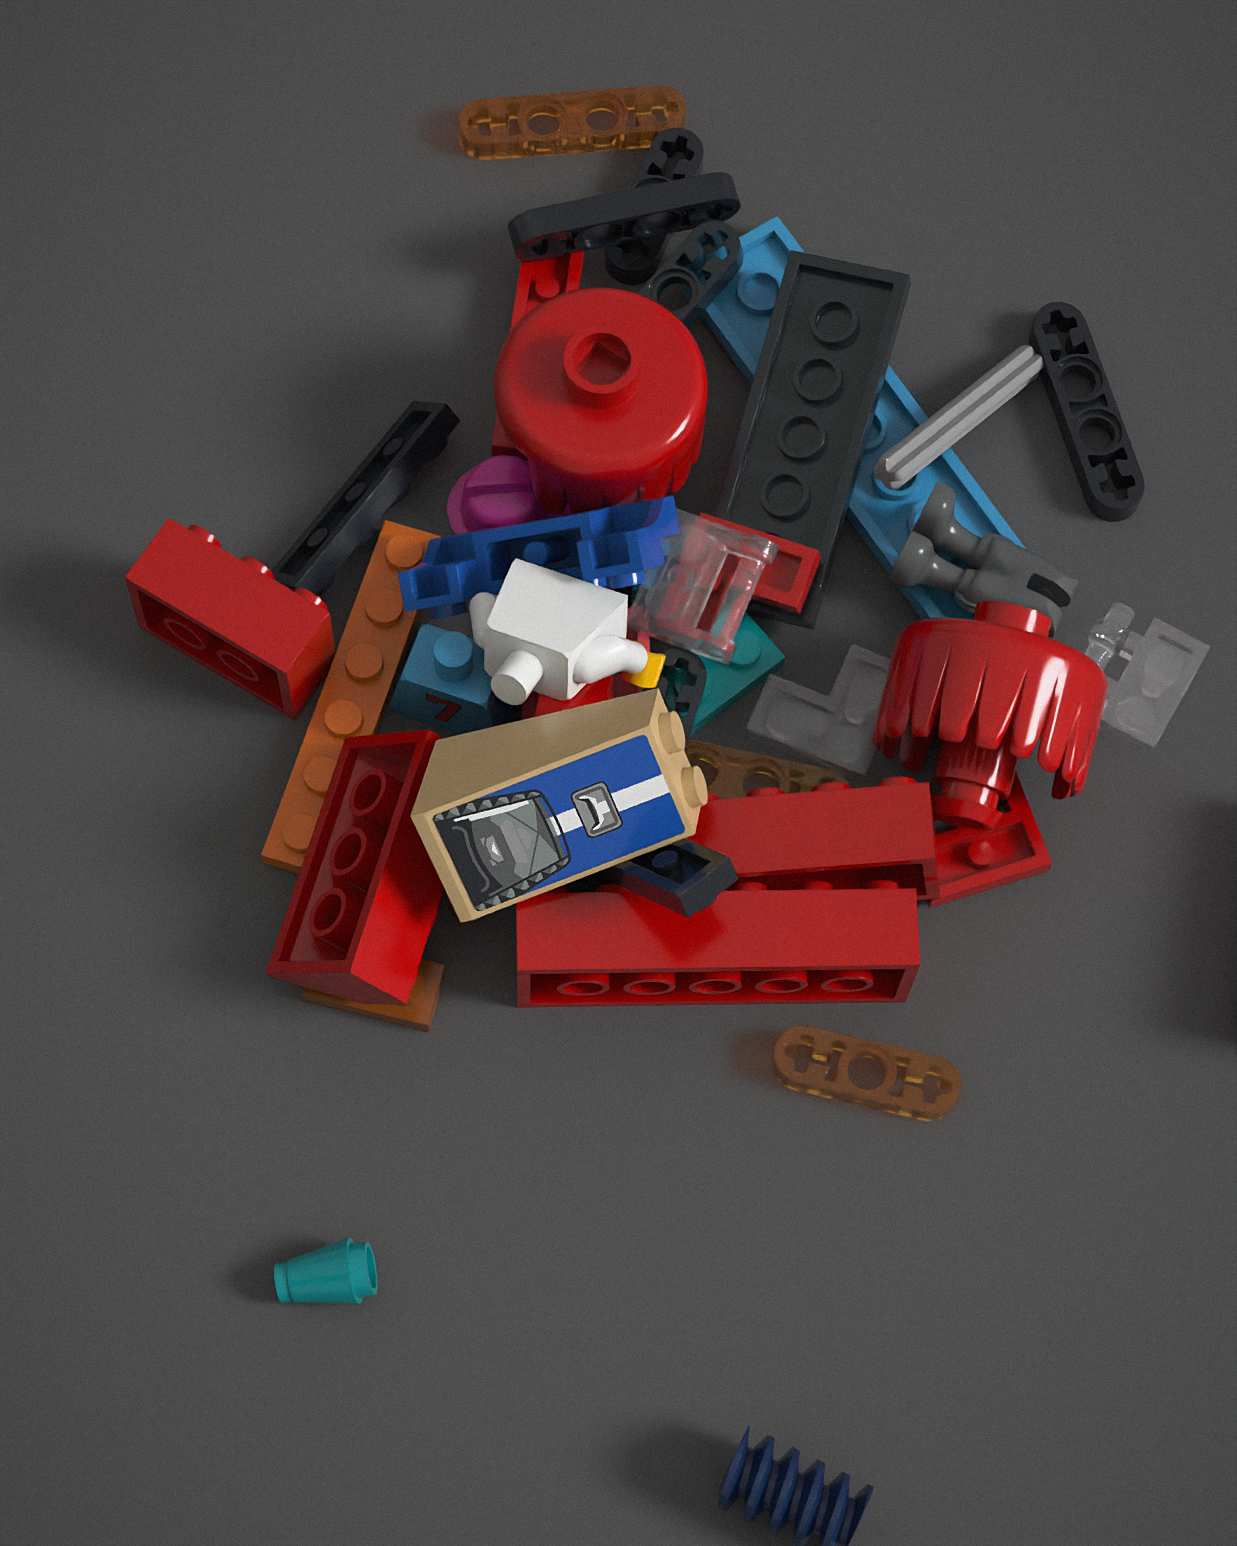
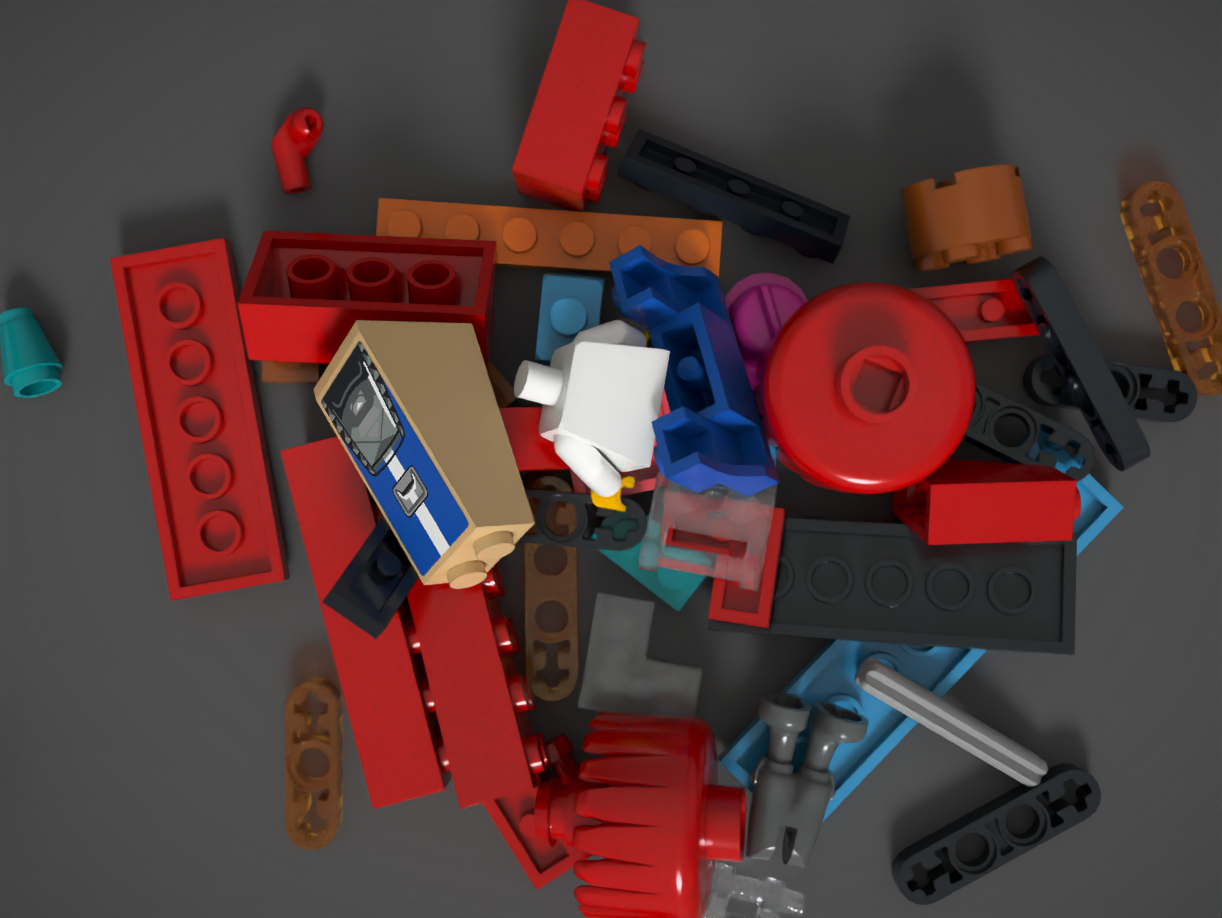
camera: 80 degrees right, 20 degrees up
(175, 934) = (292, 146): none -> red arm
(450, 285) = (966, 217): none -> dark orange brick
(452, 1101) = (199, 419): none -> red plate
(742, 323) = (989, 503): none -> red slope

